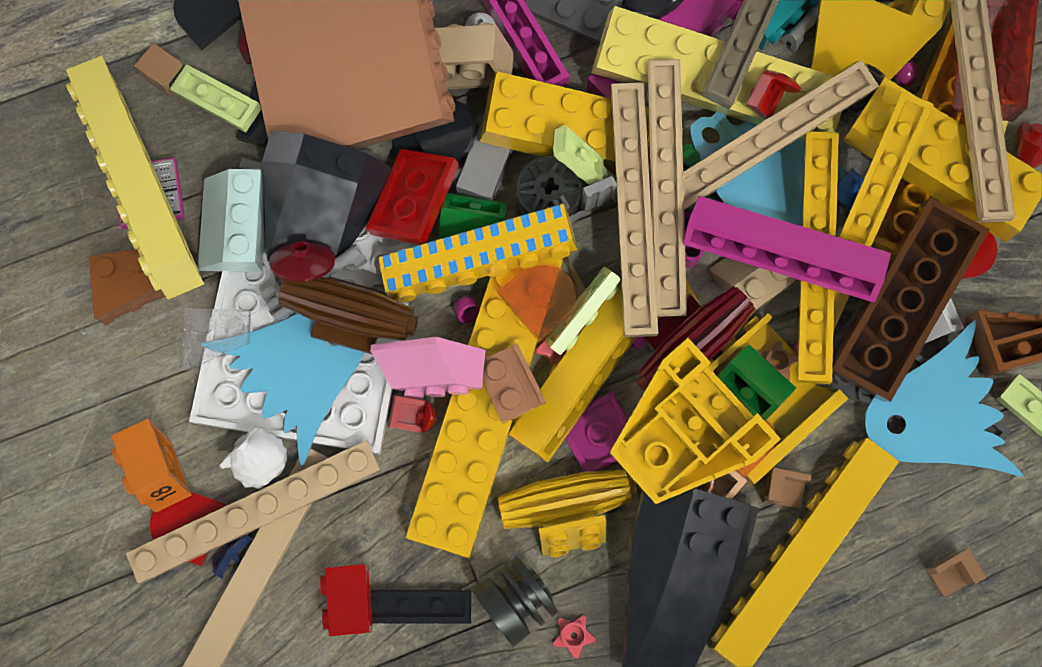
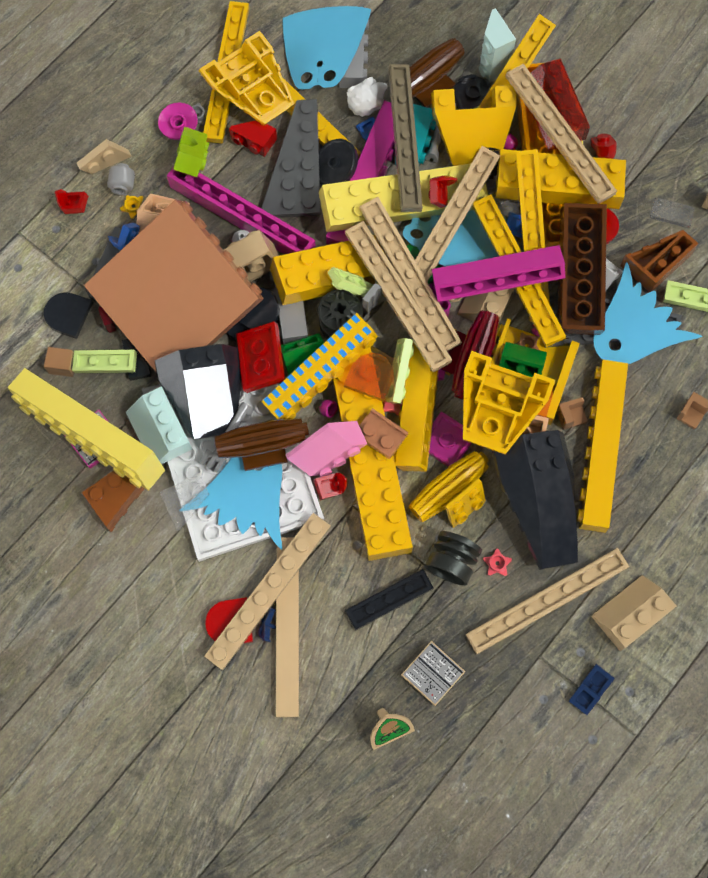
camera: 25 degrees left, 5 degrees down
(150, 466) = (191, 595): orange brick -> none
(256, 458) = (252, 558): white animal -> none
(302, 261) = (218, 425): dark red dish -> none
(347, 600) = (354, 610): red brick -> none

